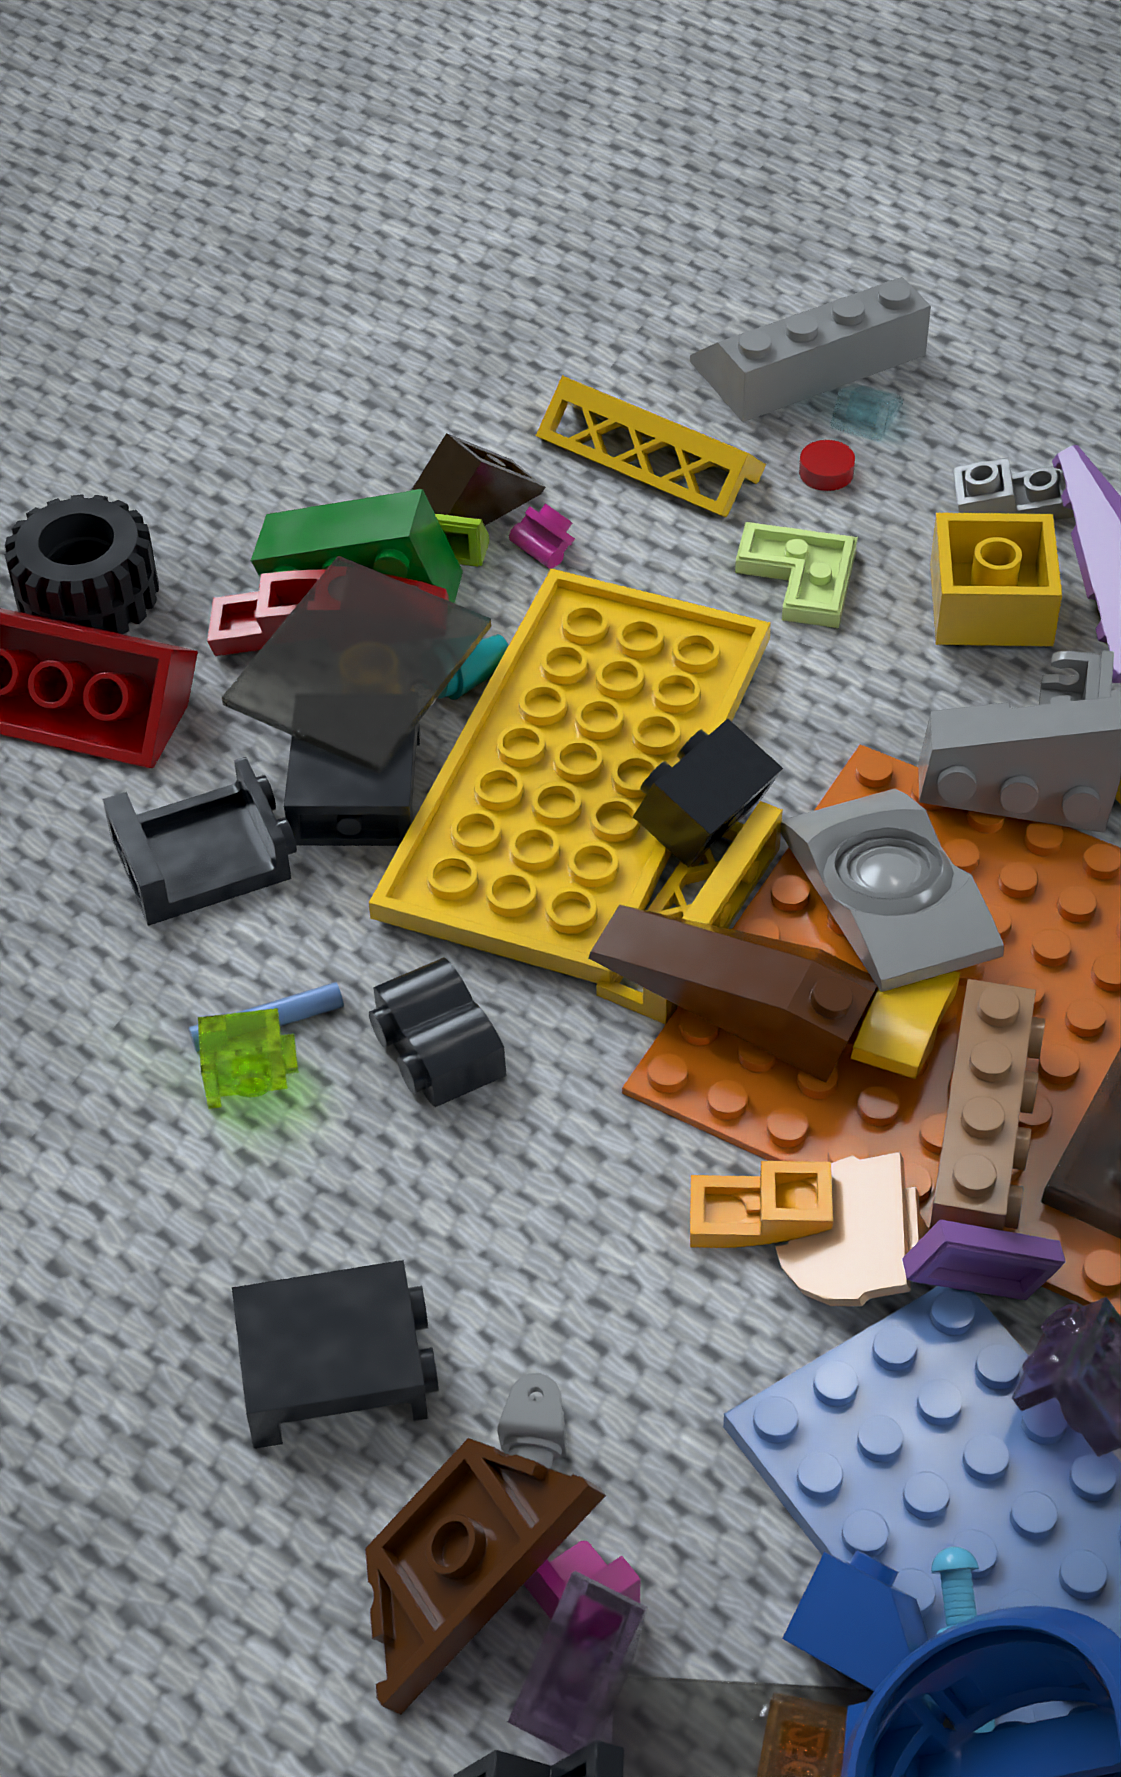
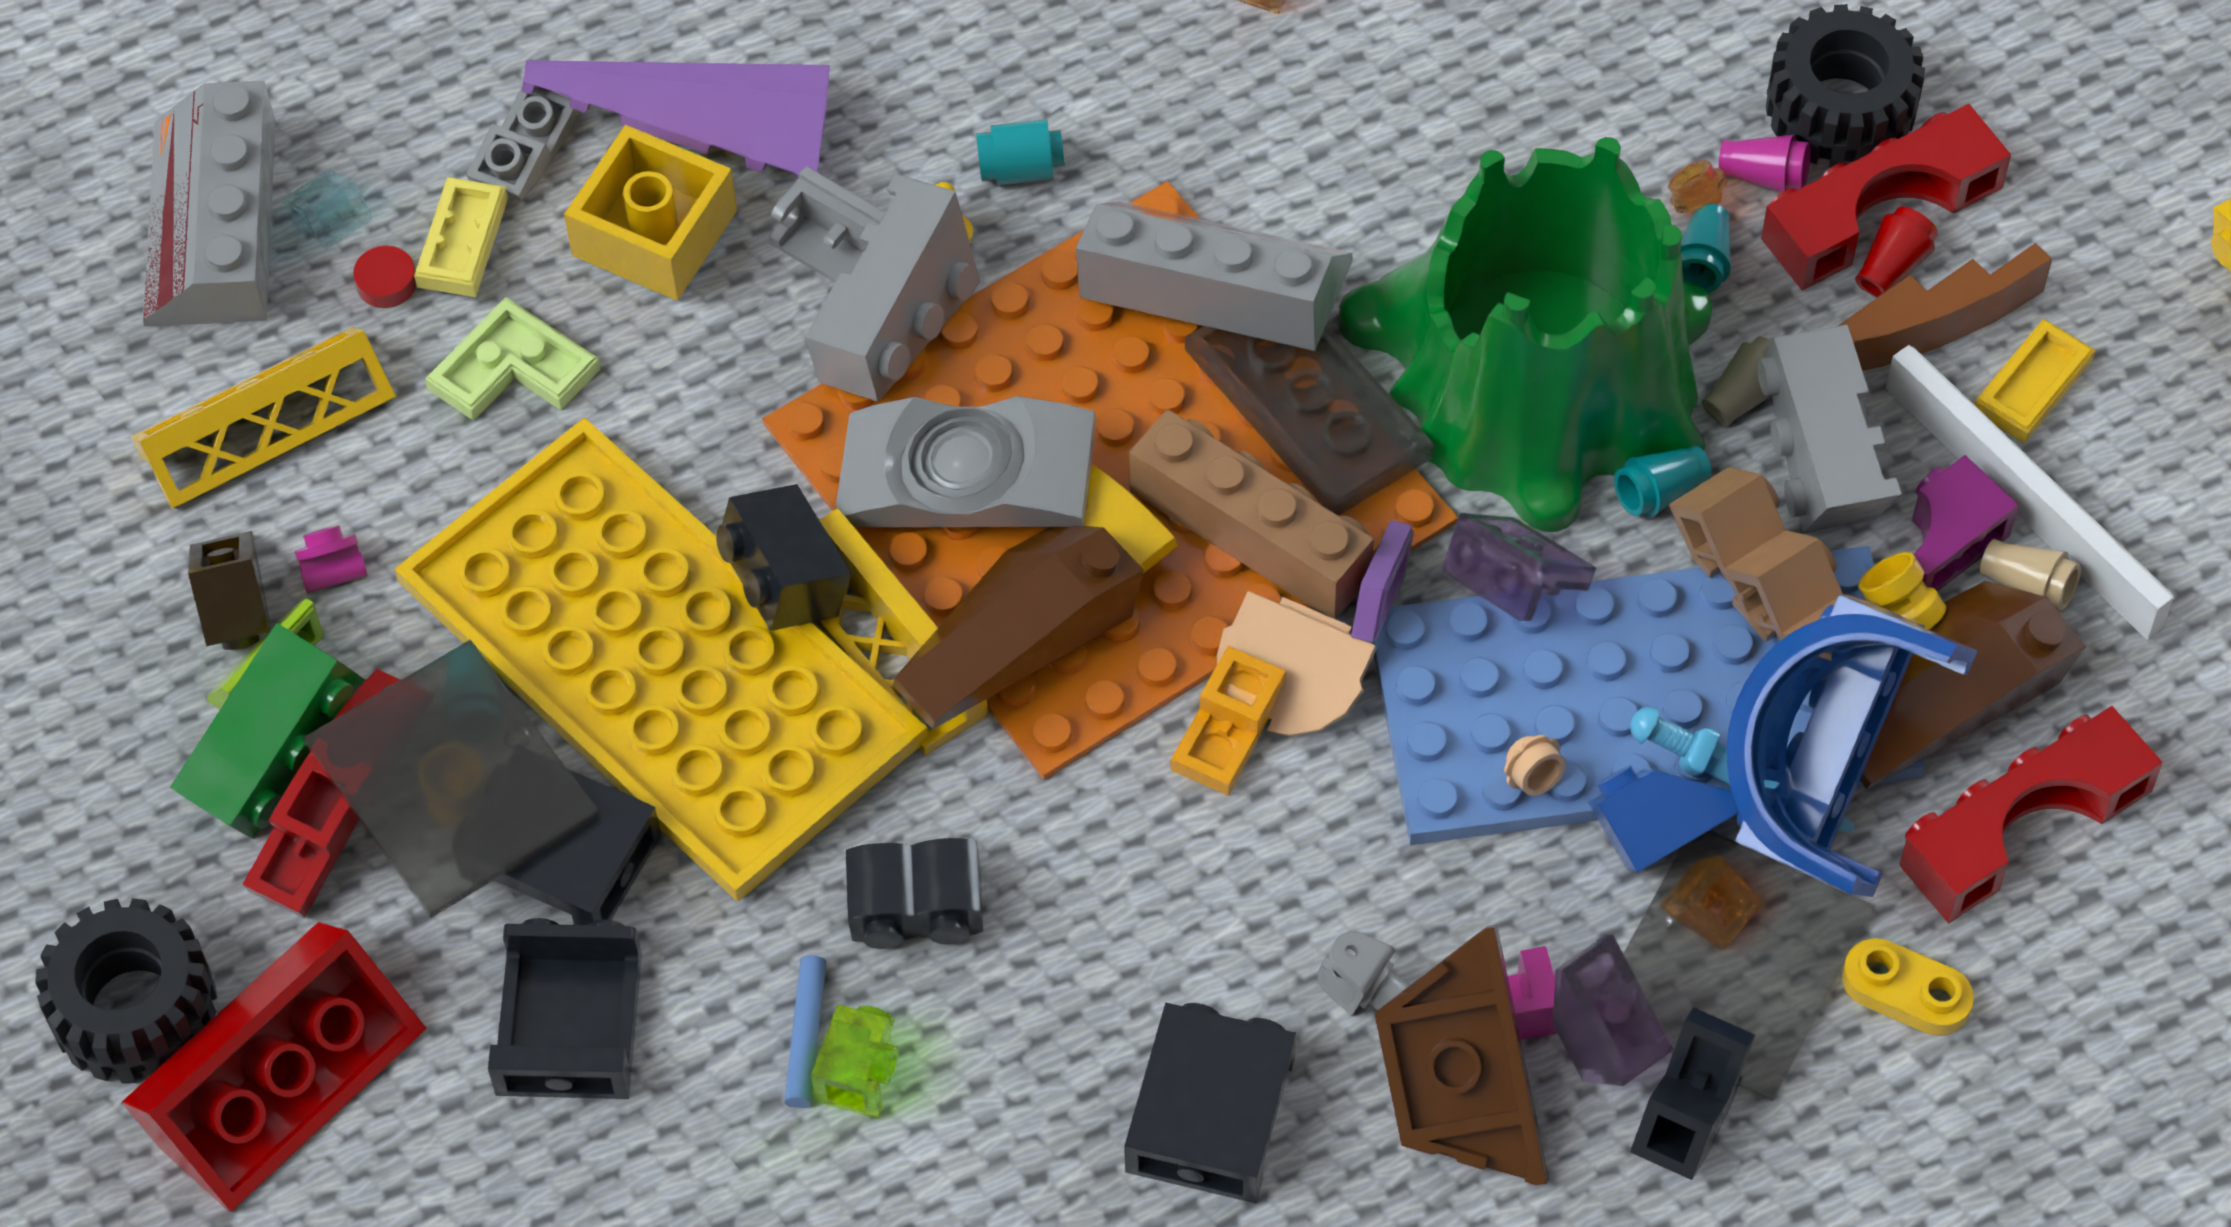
camera: 65 degrees left, 10 degrees up
(851, 1482) = (1534, 764): none -> light nougat plate
(893, 489) = (461, 237): none -> light yellow plate

